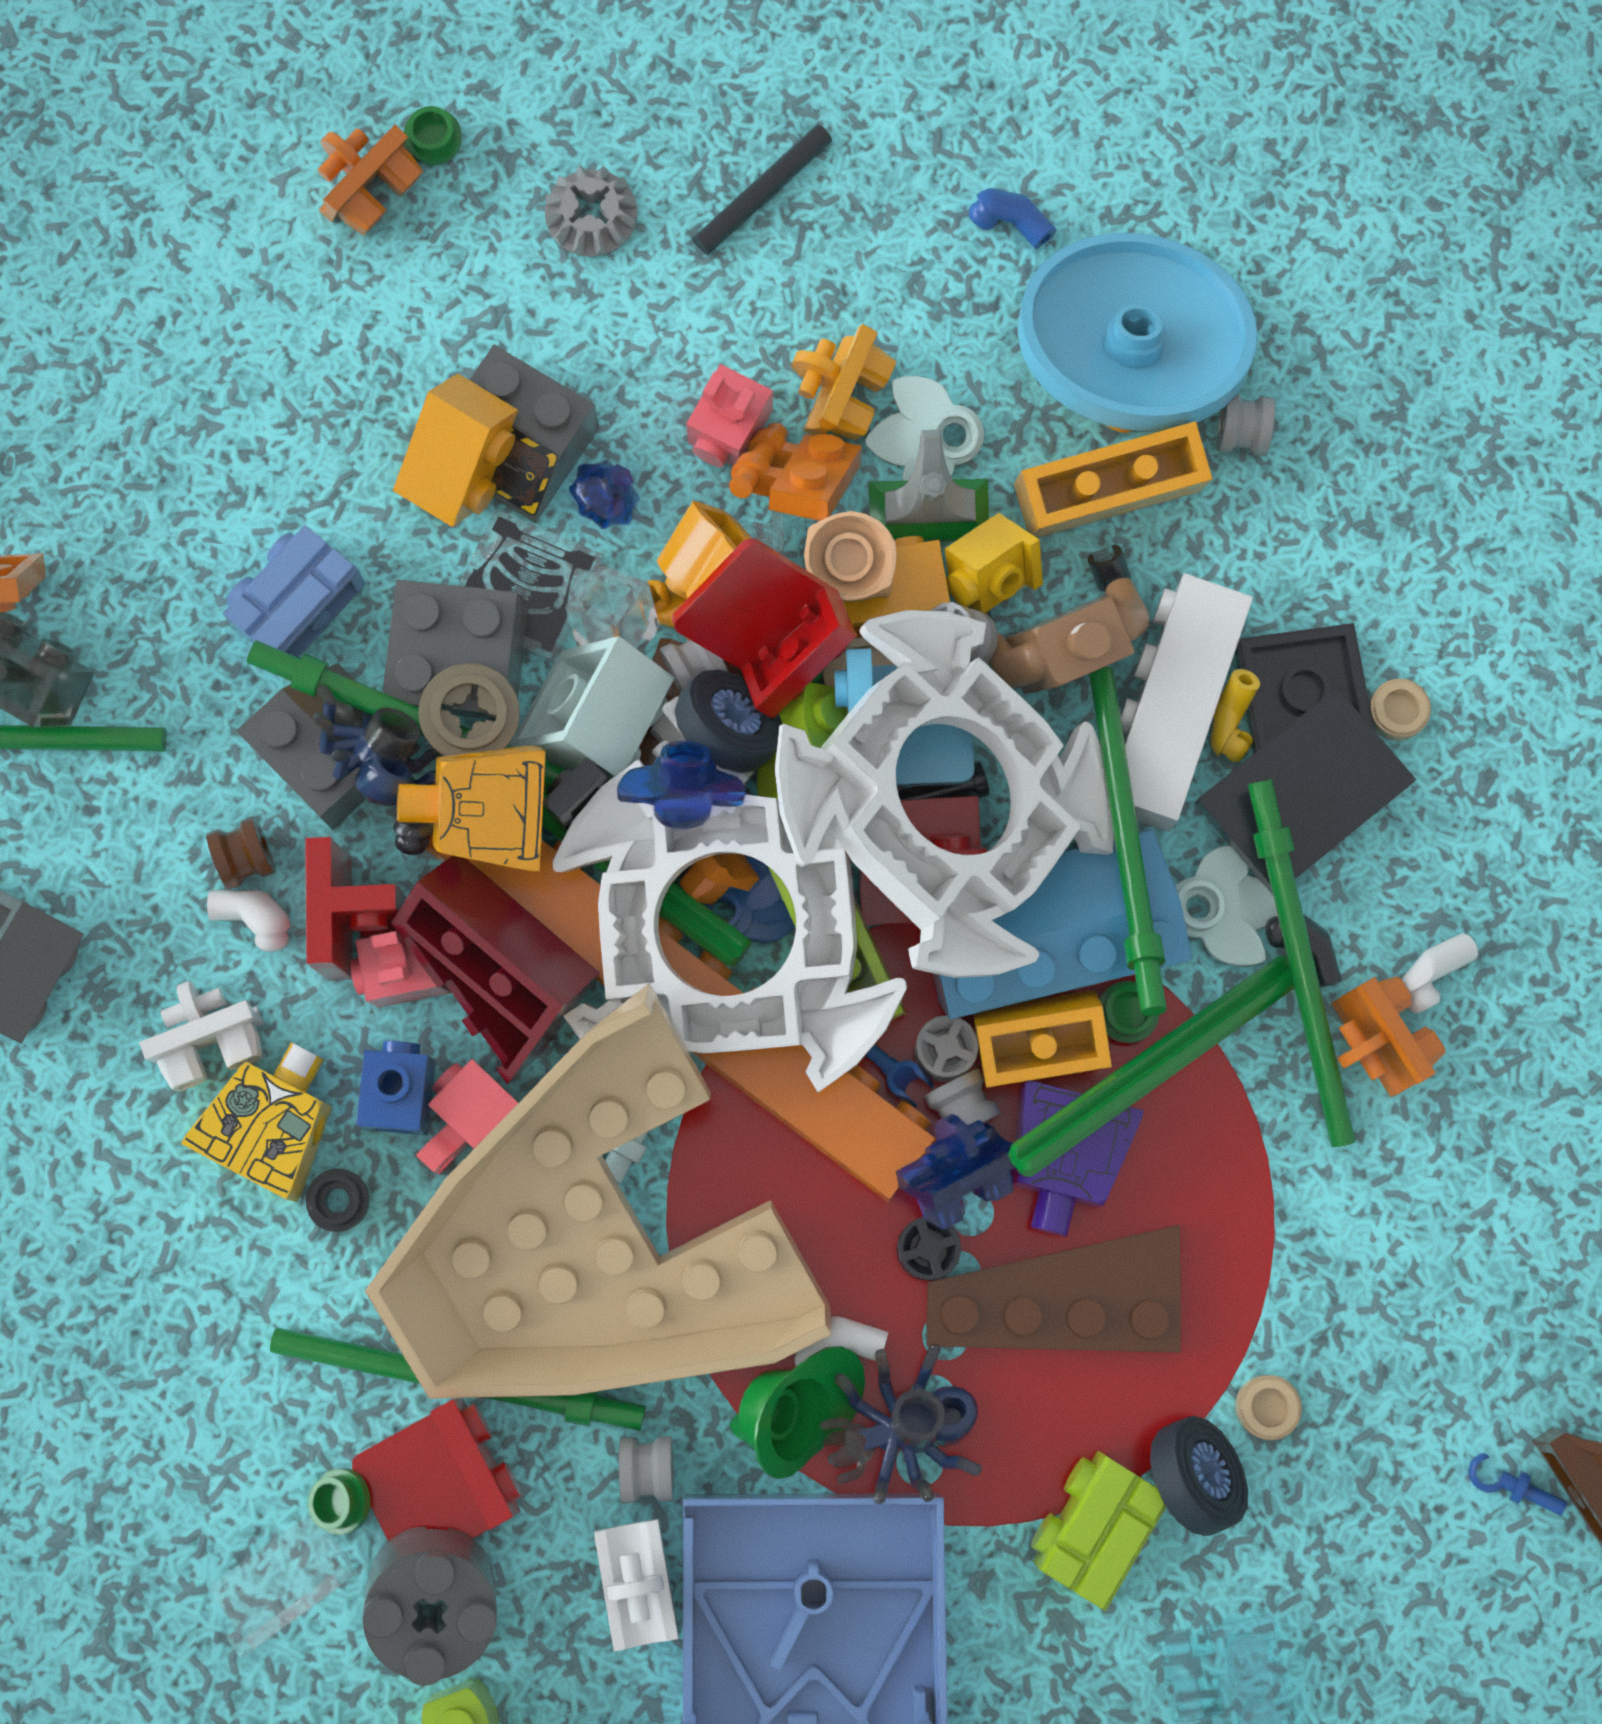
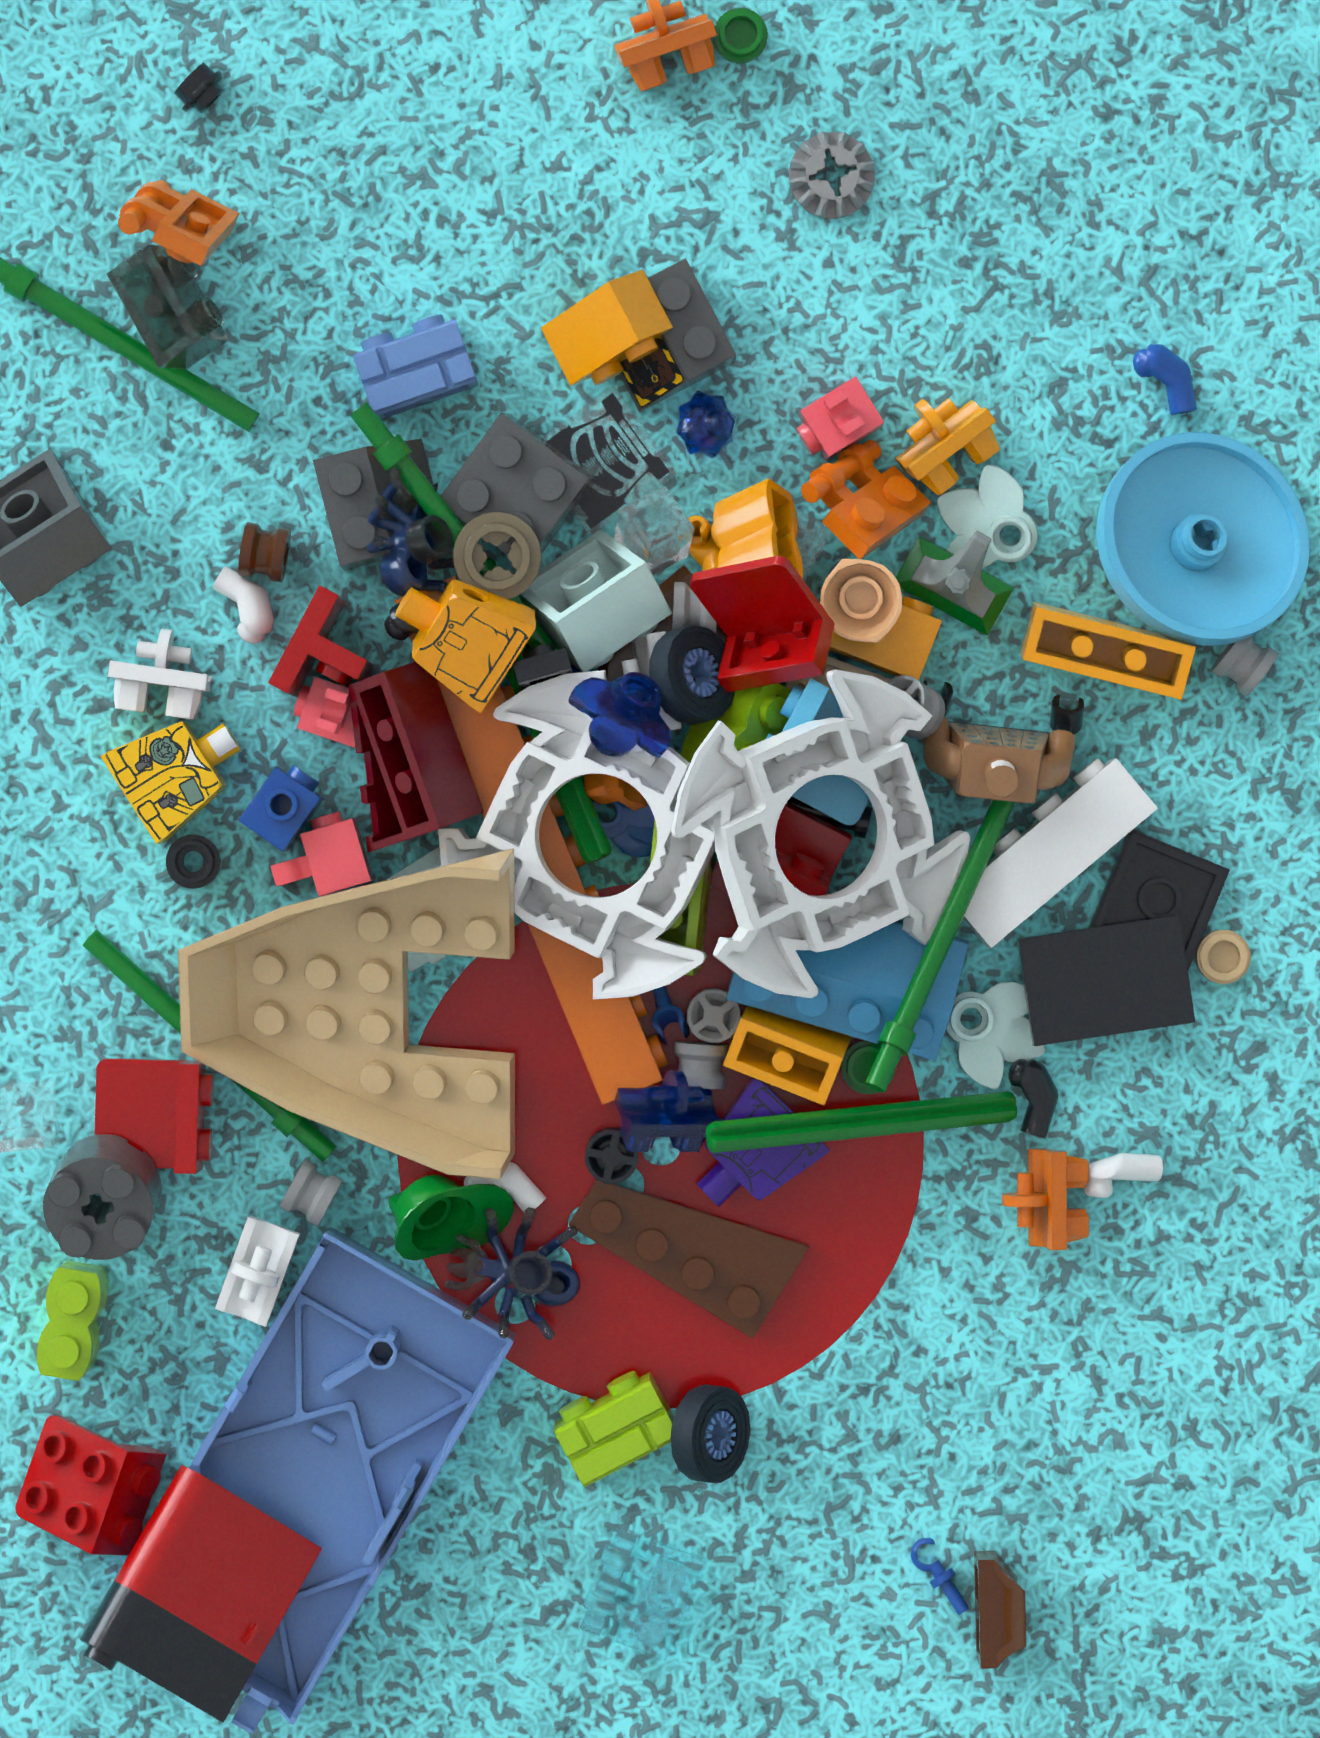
camera: 30 degrees right, 10 degrees up
(339, 1501) = (75, 1085): green plate -> none
(762, 189) = (981, 236): black bar -> none
(992, 564) = (972, 662): yellow brick -> none
(1230, 709) = (1091, 881): yellow arm -> none
(1268, 1407) = (794, 1414): tan tile -> none
(1274, 845) = (1051, 1011): green bar -> none

